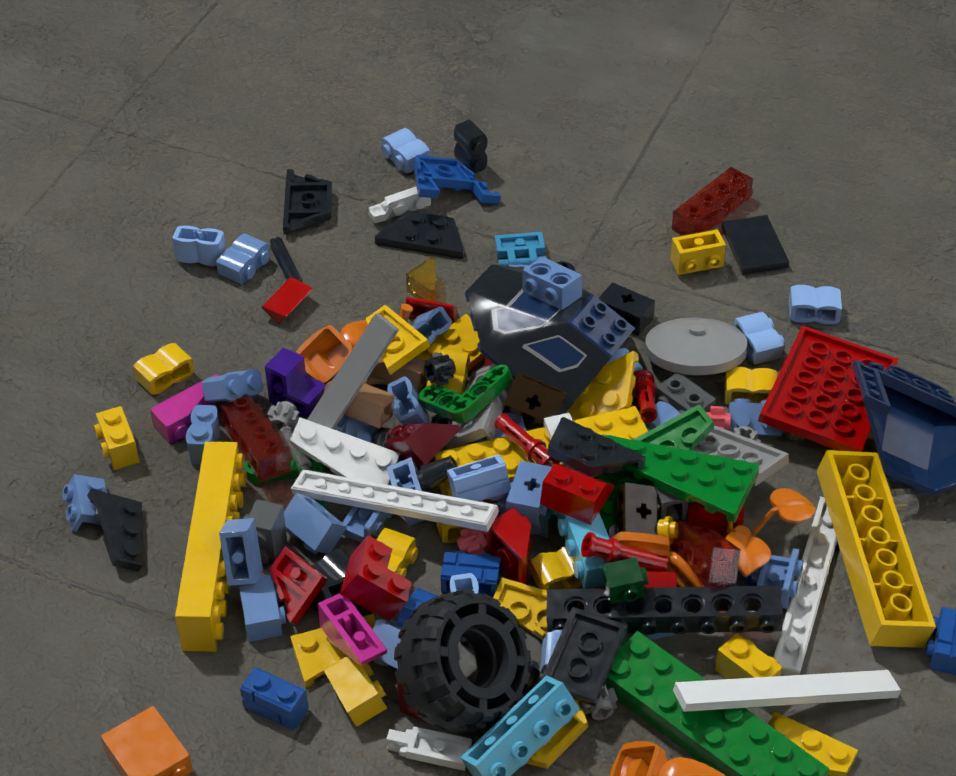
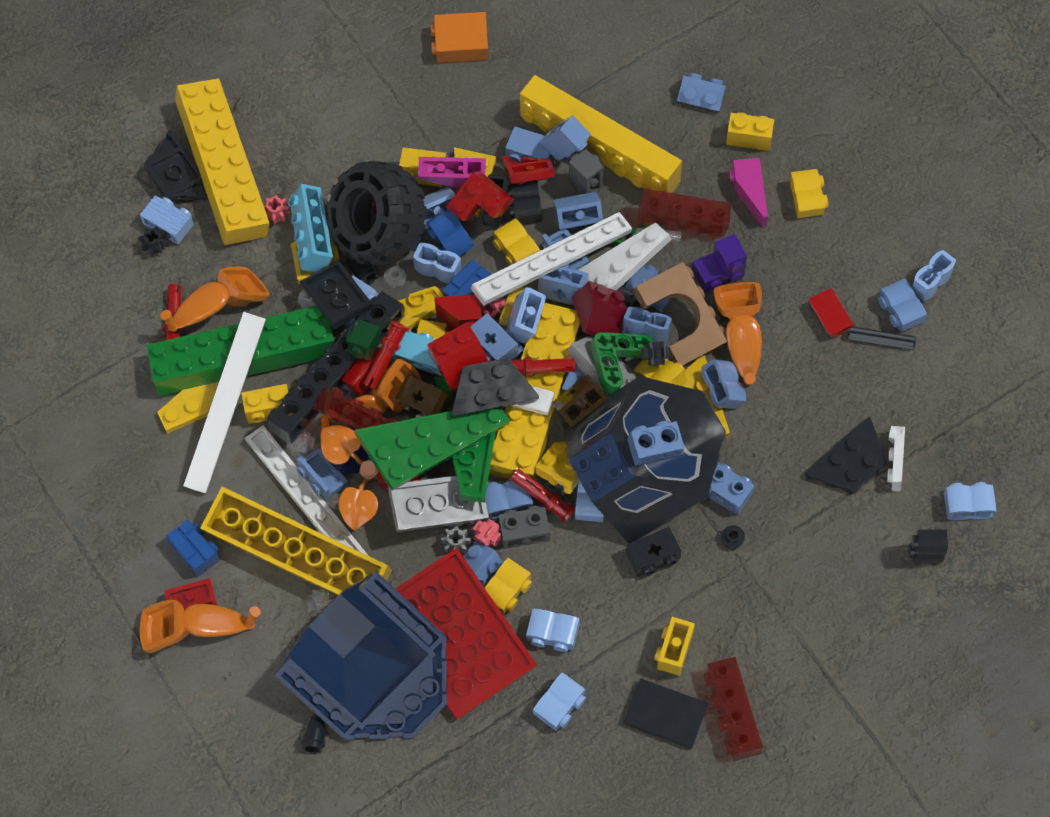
camera: 125 degrees right, 20 degrees up
(122, 528) = (660, 98): black wing -> none
(203, 429) = (713, 185): medium blue brick -> none
(232, 385) = (747, 220): medium blue brick -> none
(274, 698) = (450, 121): blue brick -> none
(283, 415) = (698, 245): light grey gear -> none
(306, 202) = (951, 389): black wing -> none
(354, 372) = (667, 268): light grey tile -> none
(406, 343) = (714, 345): yellow wing -> none
(422, 280) = (783, 421): clear yellow slope -> none
(422, 306) = (751, 411): red slope -> none
(435, 473) = (556, 296): black cone -> none
(439, 172) = (912, 507): blue wing -> none
(519, 245) = (784, 522): dark azure plate -> none
(668, 528) = (397, 410): yellow plate -> none
(696, 346) = (572, 570): light grey dish -> none

